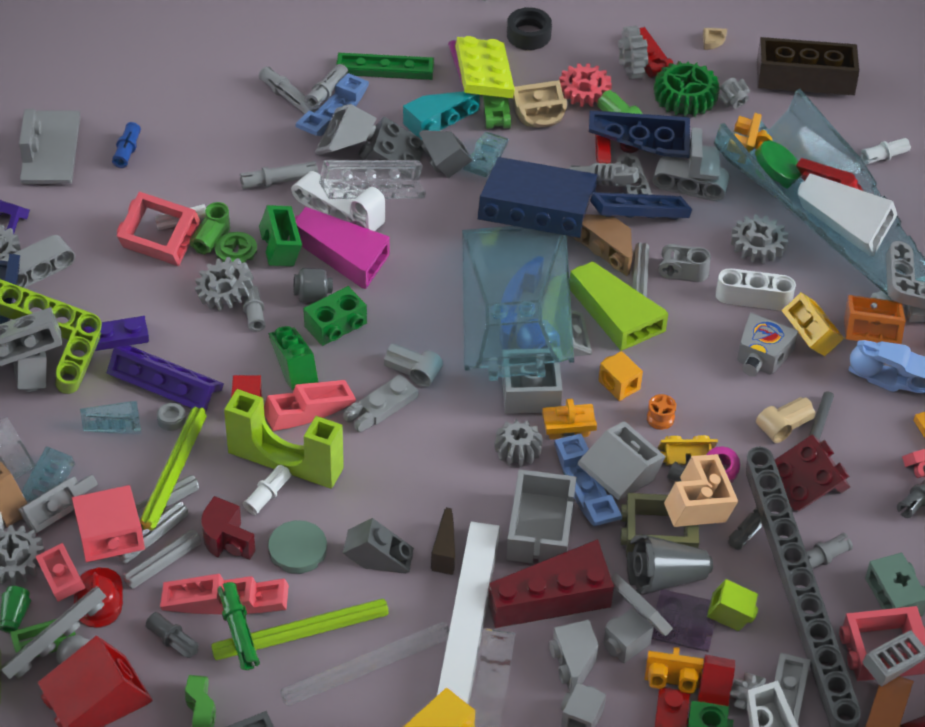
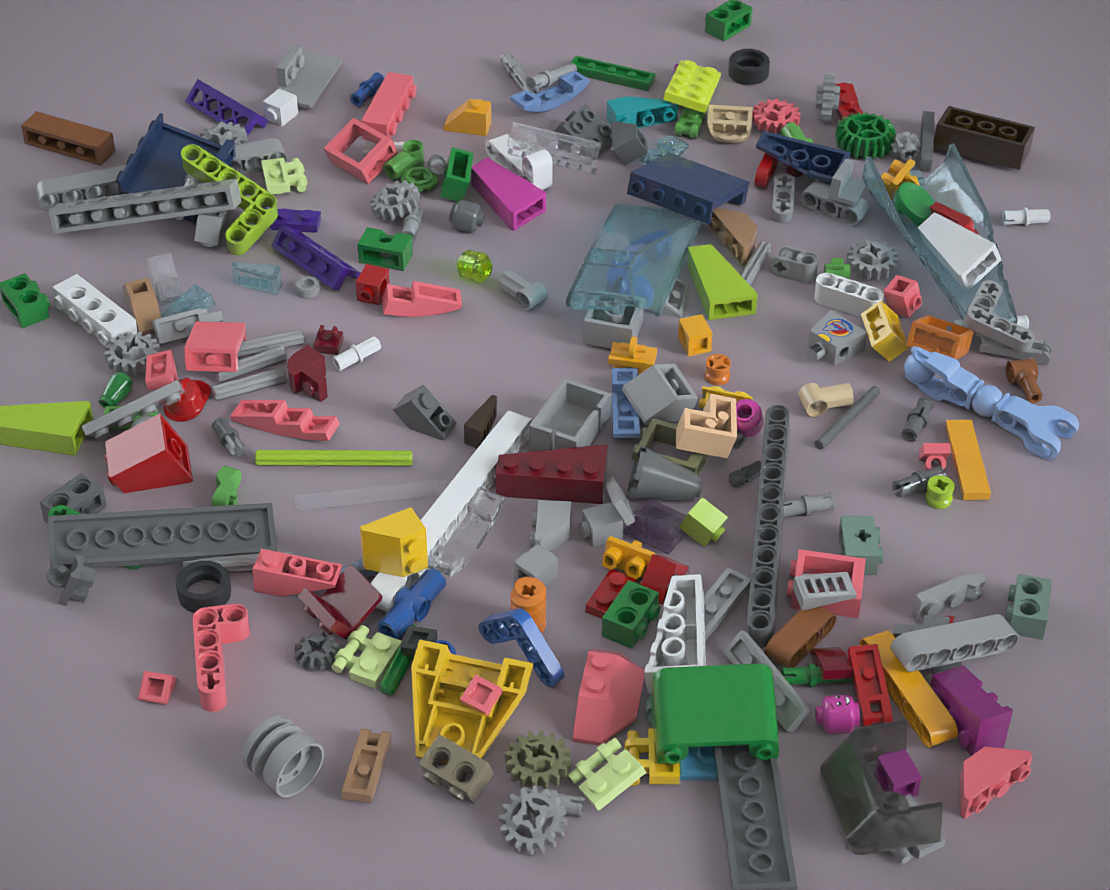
camera: 20 degrees right, 5 degrees down
(38, 190) = (280, 107): none -> white brick
(74, 283) = (277, 177): none -> yellowish green plate
(162, 160) = (390, 103): none -> coral brick
(172, 469) = (286, 320): lime axle -> none
(226, 481) = (328, 341): none -> dark red tile
(231, 342) = (377, 241): none -> green brick
(235, 615) = (282, 431): green pin -> none
(250, 438) = (408, 327): lime arch -> none
(251, 226) = (439, 168): none -> light grey pin
(256, 154) = (470, 118): none -> light orange slope
(276, 175) = (475, 133): light grey pin -> none
(293, 356) = (426, 263): green slope -> none
(297, 546) = (361, 400): sand green tile -> none
(335, 316) = (477, 237): green brick -> none
(347, 127) = (549, 109): light grey slope -> none
(348, 346) = (474, 266): none -> clear neon green head
(381, 403) = (482, 314): light grey hinge -> none
(518, 443) = (581, 364): light grey gear -> none
(611, 173) = (762, 184): light grey hinge -> none
(640, 205) = (775, 211): dark blue plate -> none
(713, 37) = (913, 103): tan tile -> none
(731, 260) = (837, 268): none -> bright green gear
(747, 71) = (927, 141): none -> dark grey beam
(810, 472) = (824, 439): dark red bracket -> none
(813, 277) = (903, 296): none -> coral brick
(886, 421) = (913, 428): none -> dark grey pin

